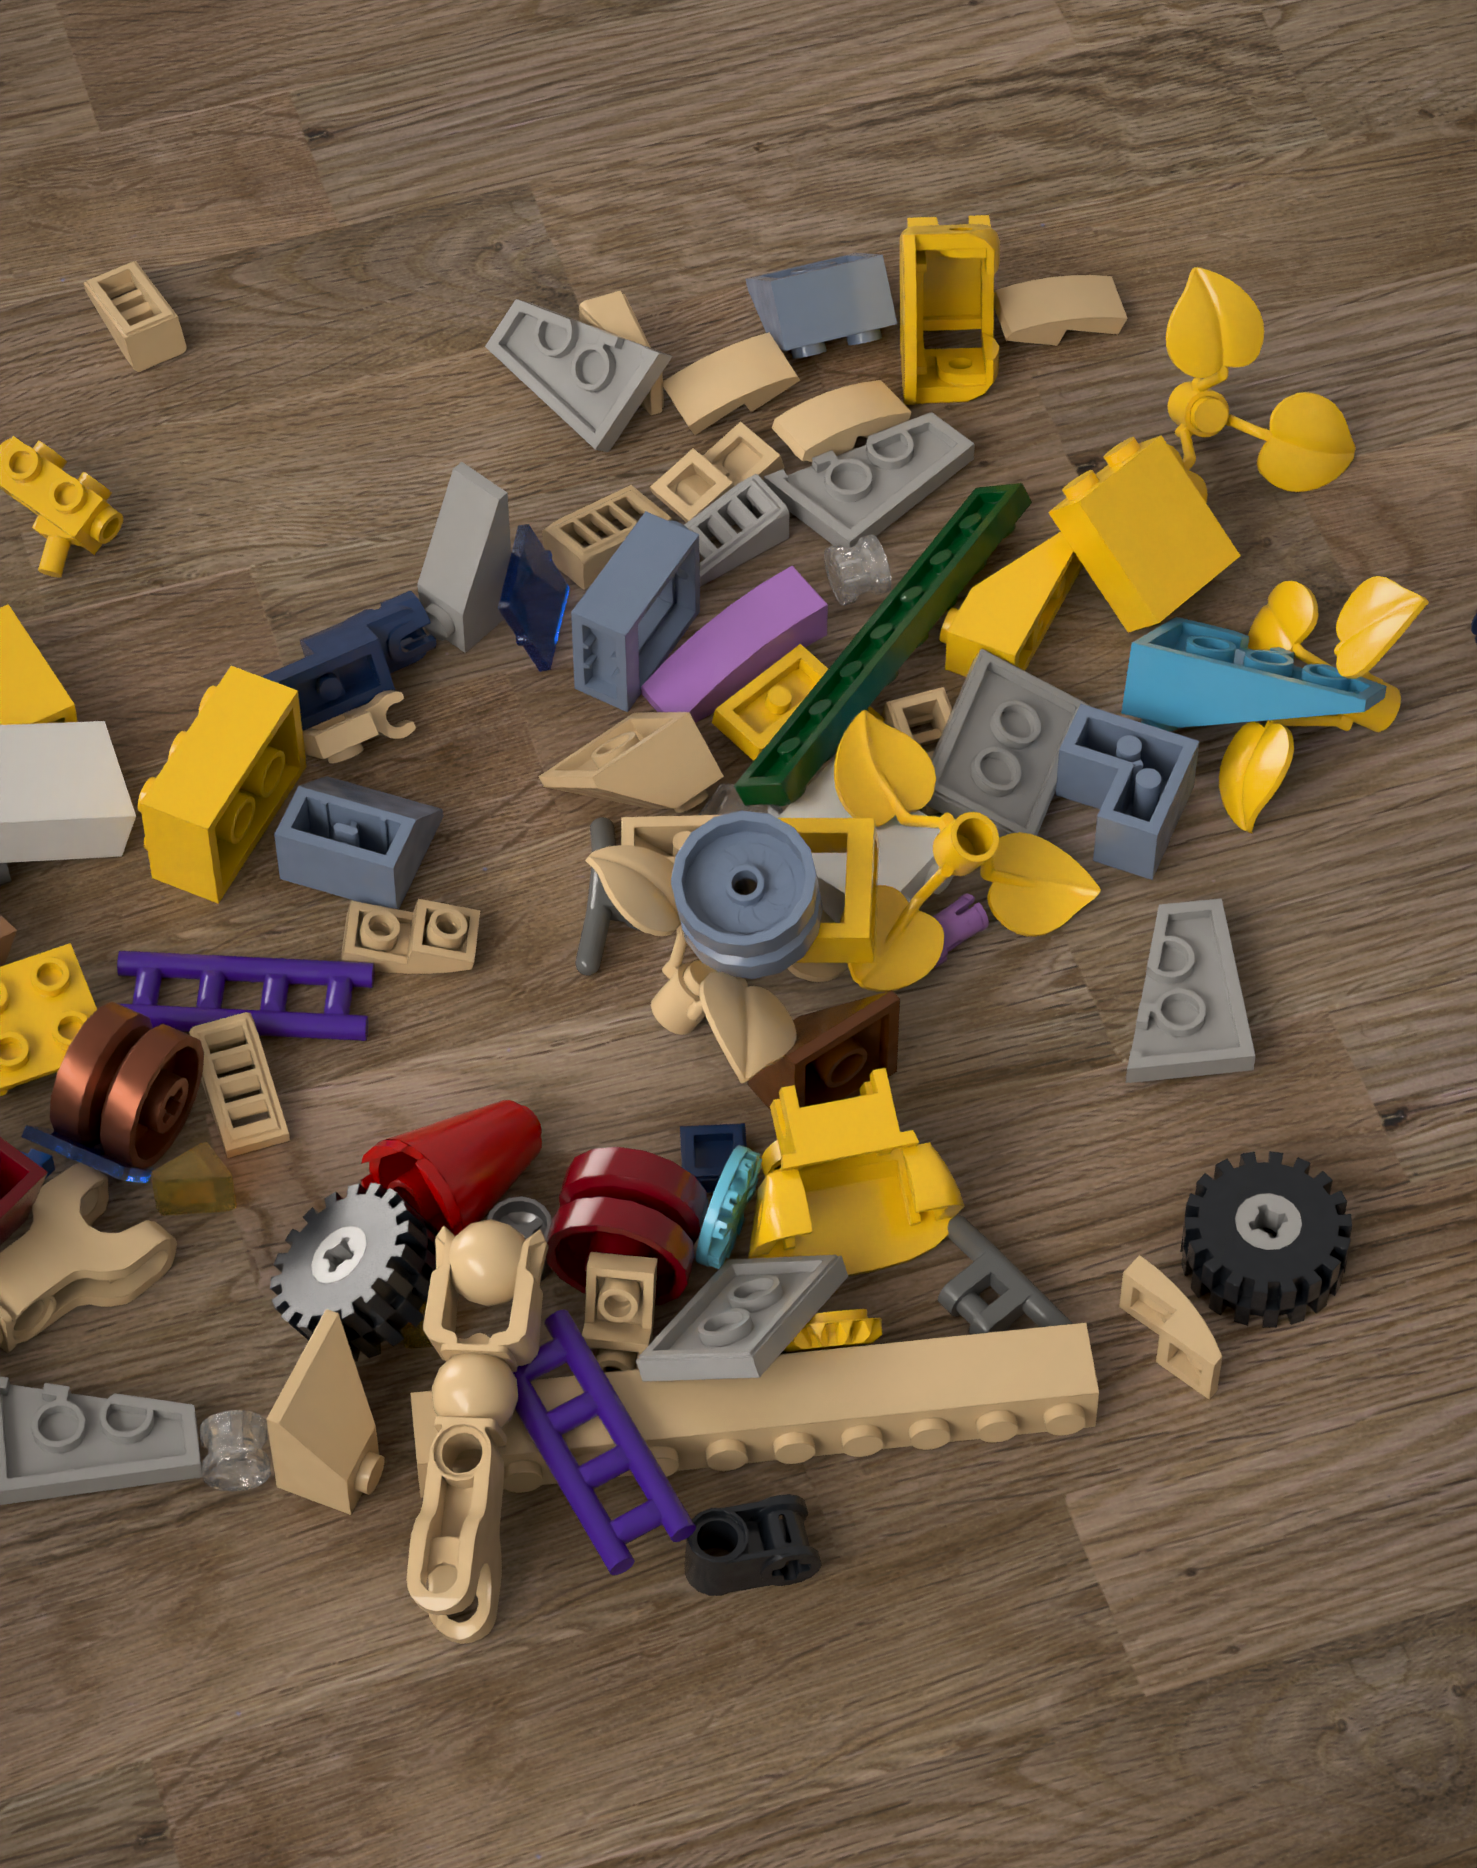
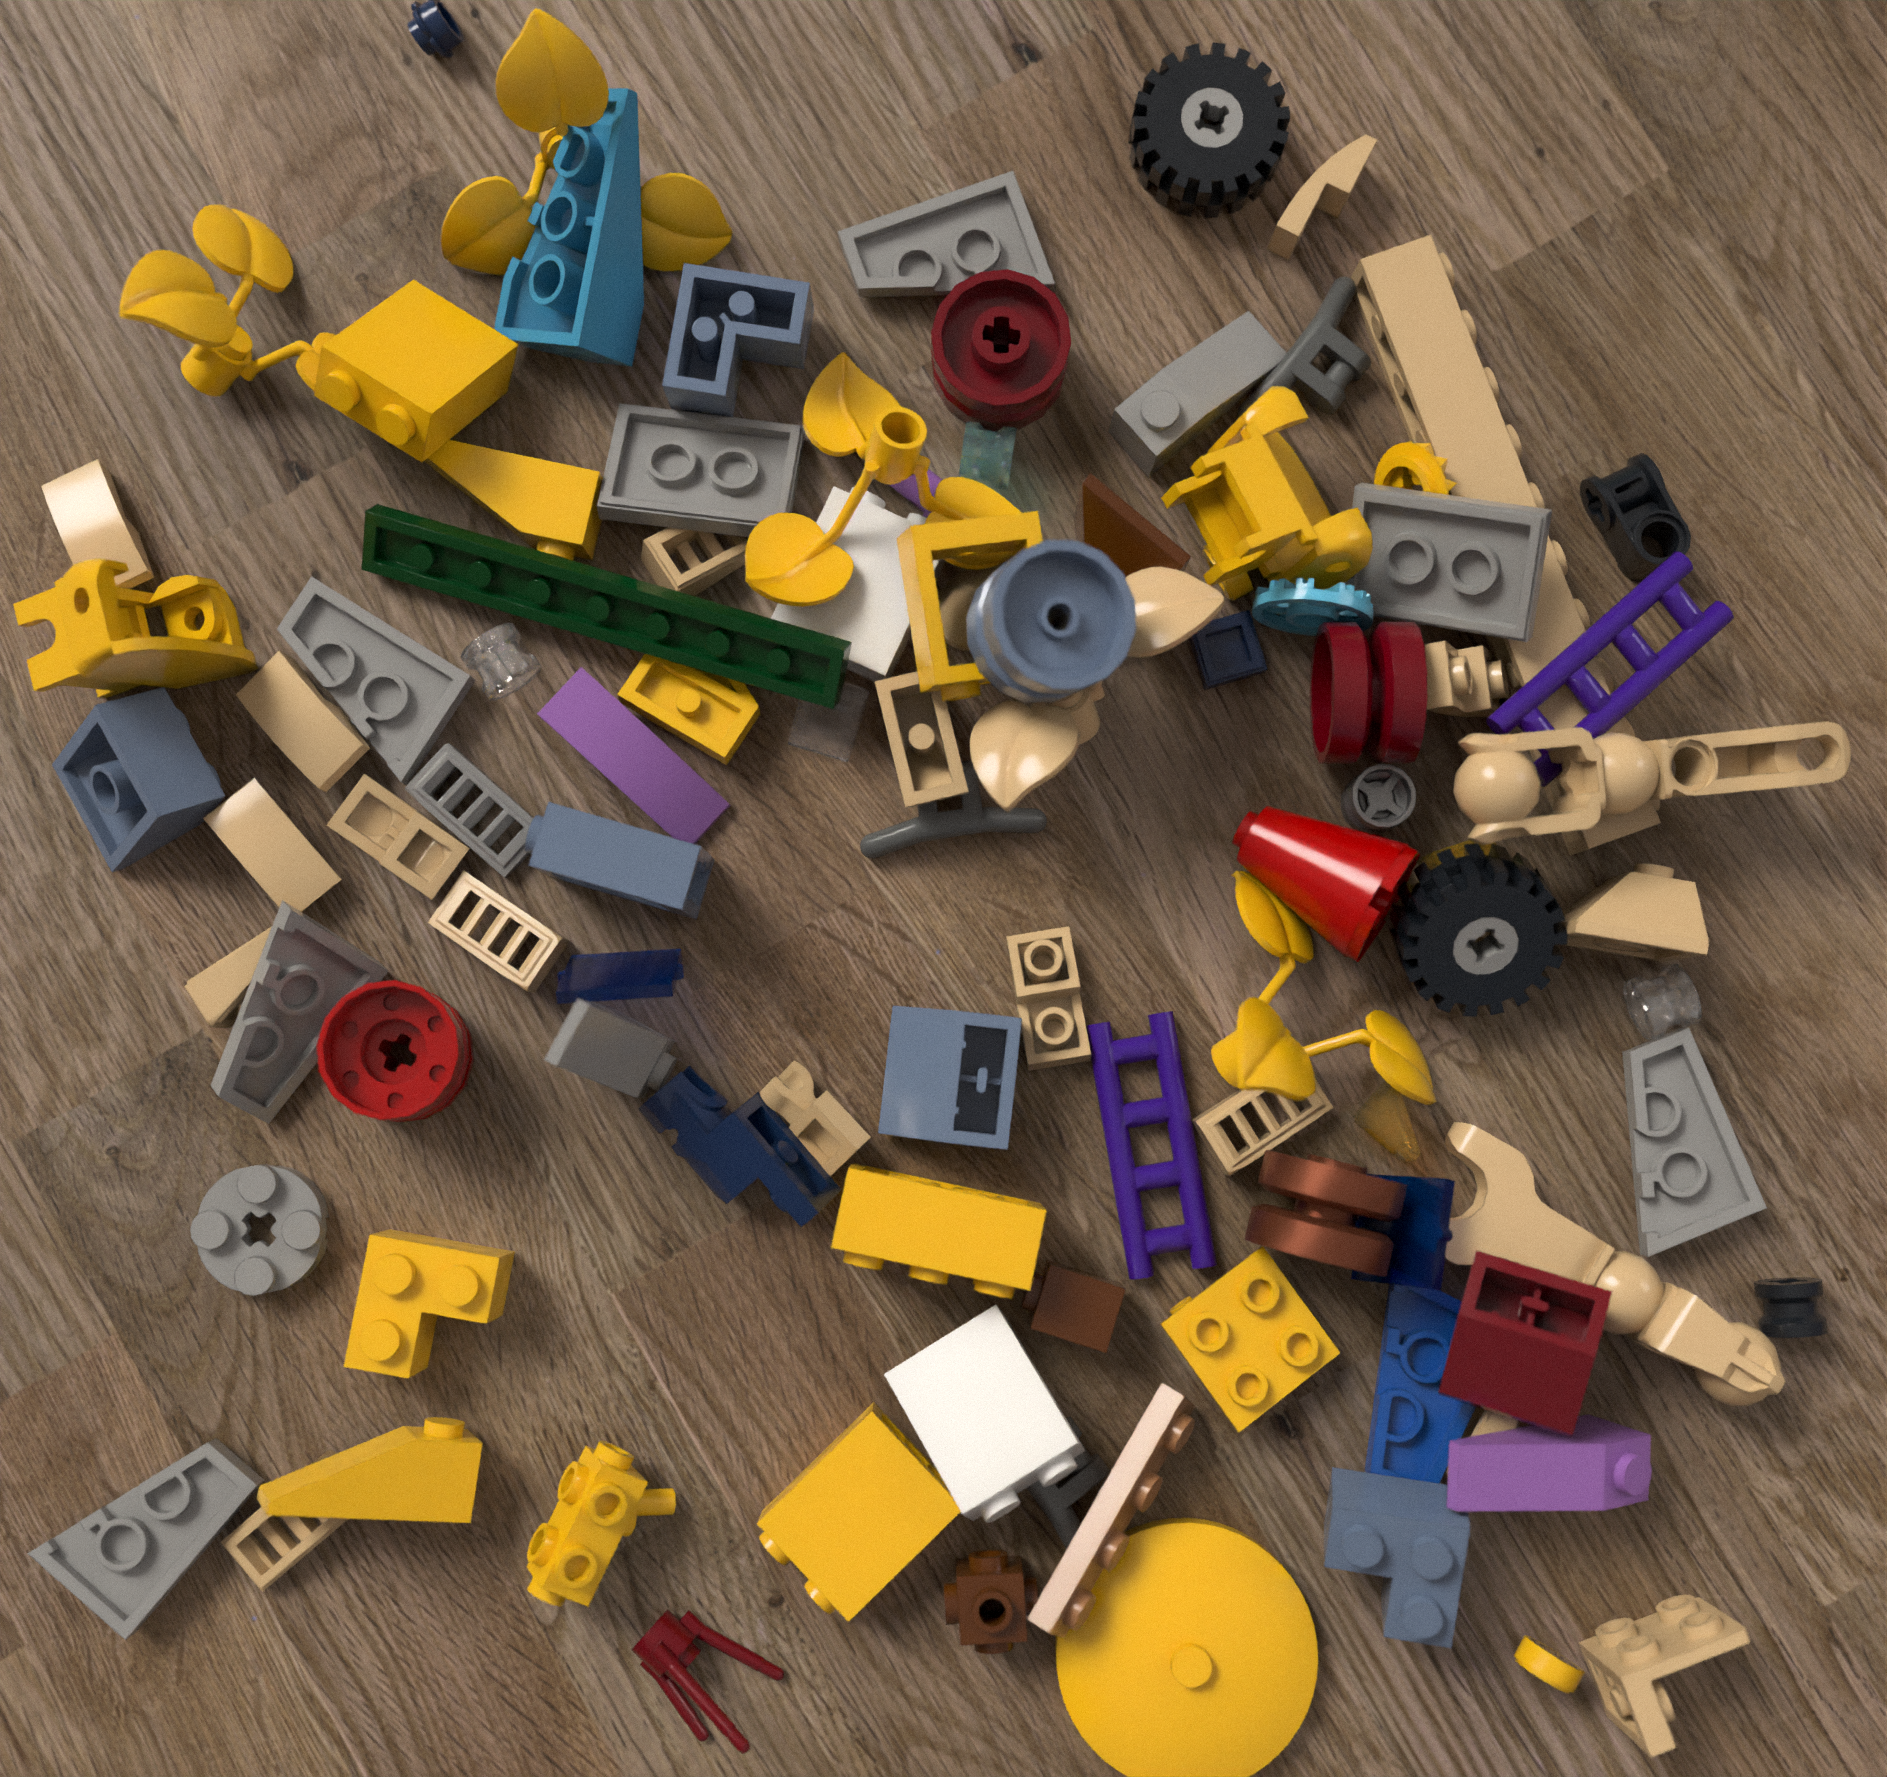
camera: 105 degrees left, 30 degrees up
(112, 885) = (1073, 1305): none -> reddish brown brick
(144, 372) = (395, 1476): none -> yellow slope
(158, 215) = (146, 1540): none -> light grey wing
(282, 1022) = (1261, 1048): none -> yellow plant
(300, 414) = (409, 1284): none -> yellow brick
(394, 303) = (224, 1228): none -> light grey plate
(516, 420) = (358, 1044): none -> red wheel
(641, 762) = (803, 828): tan slope -> none
(963, 982) = (987, 454): none -> clear light blue wheel
(989, 1169) = (1194, 392): none -> light grey slope
(1064, 1004) = (1008, 315): none -> dark red wheel

